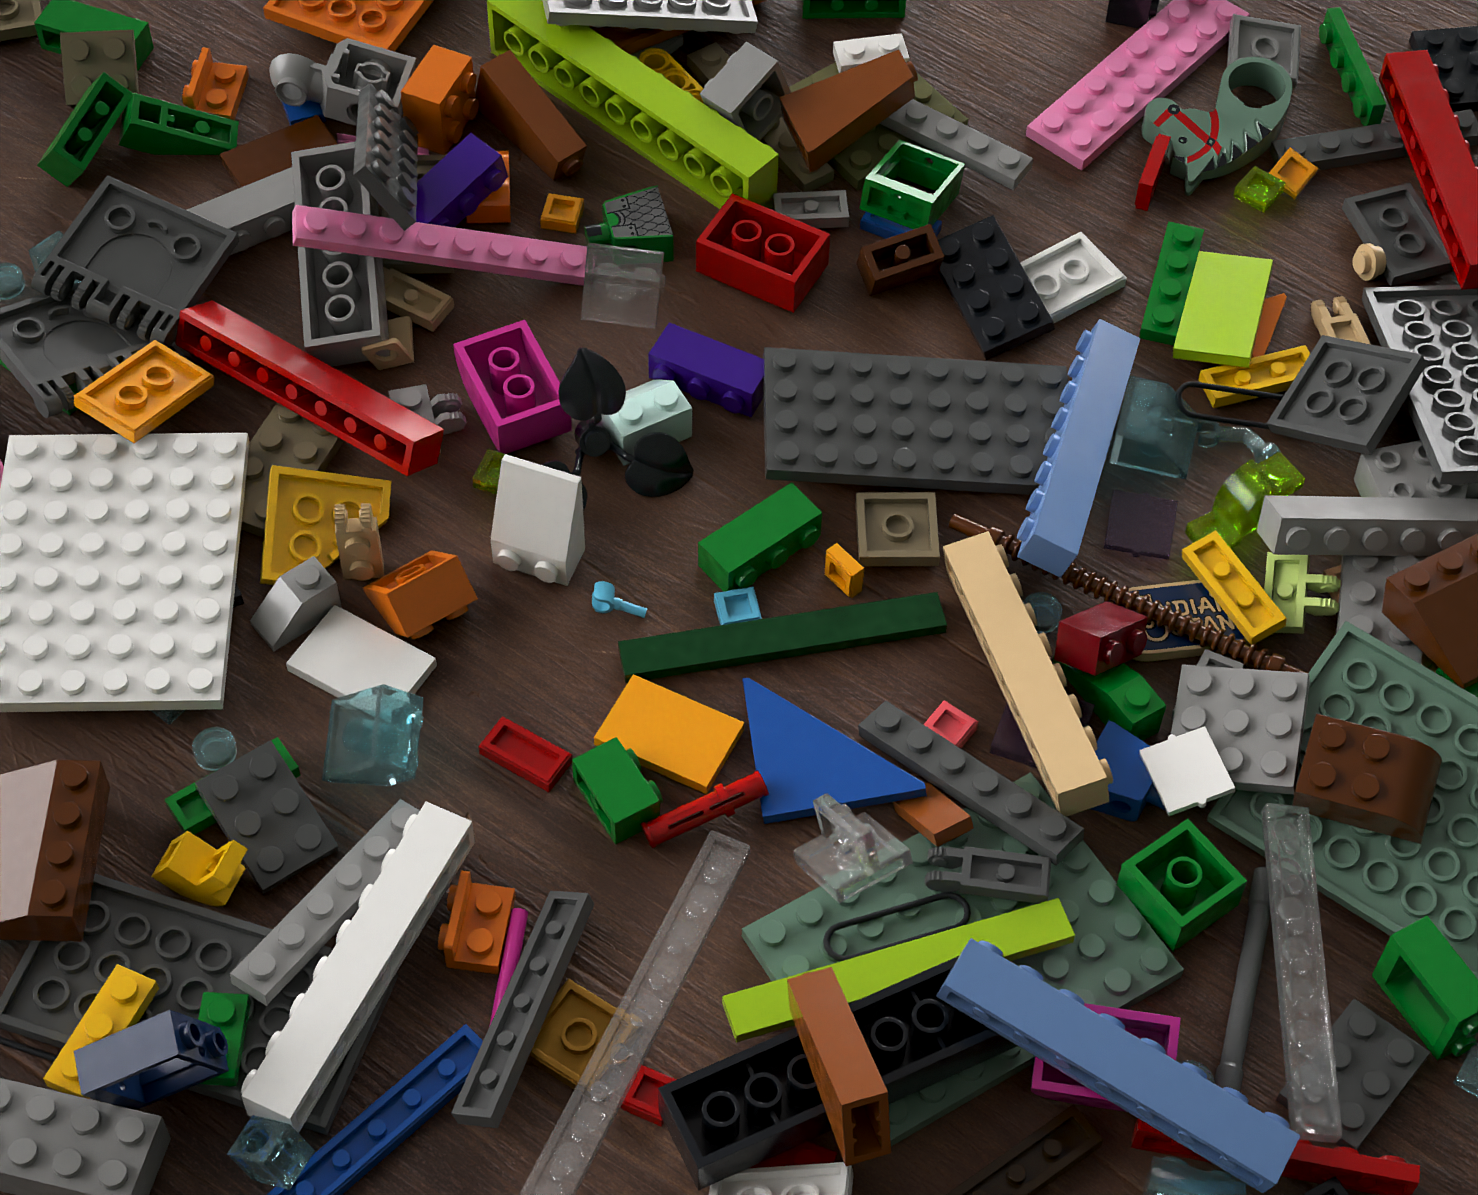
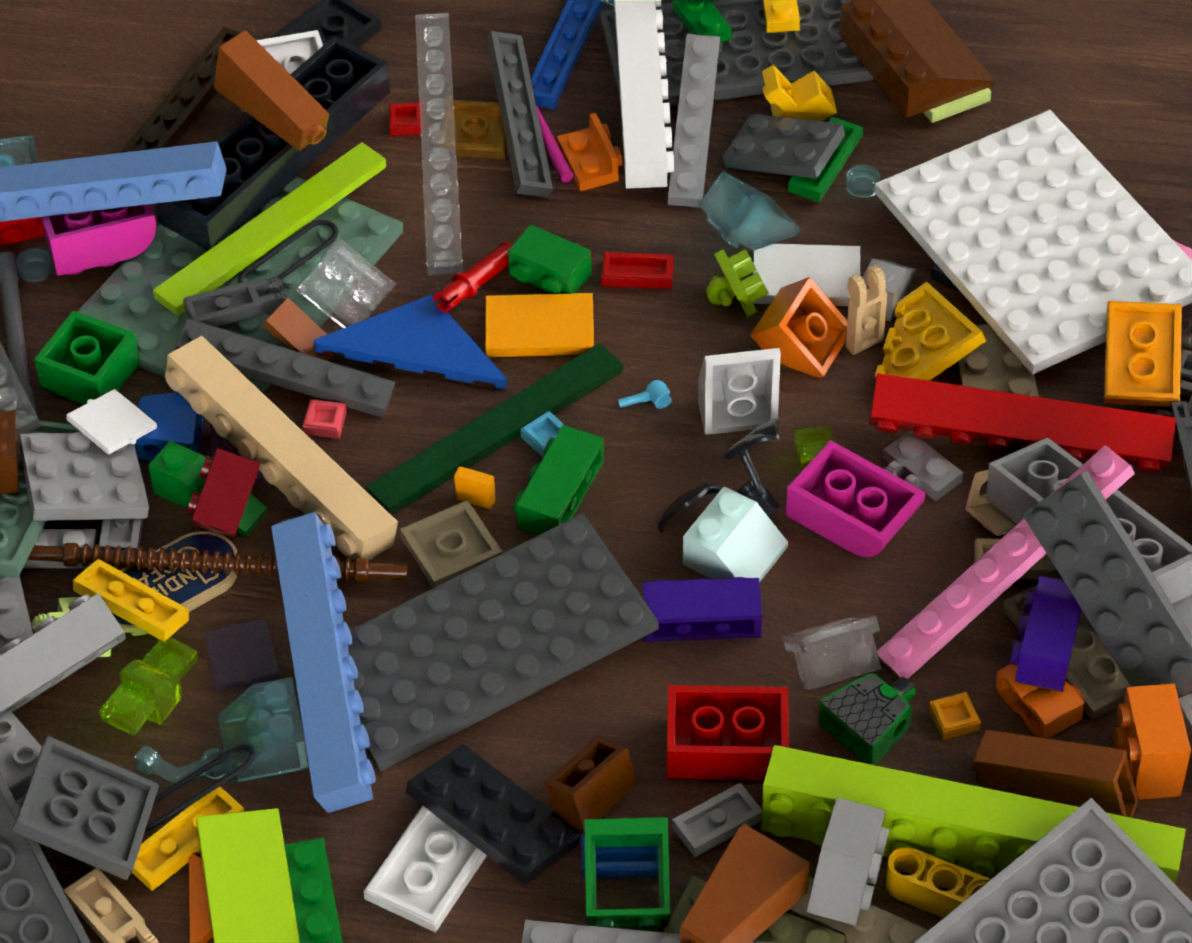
camera: 155 degrees right, 5 degrees down
(437, 685) = (723, 289): none -> lime hips

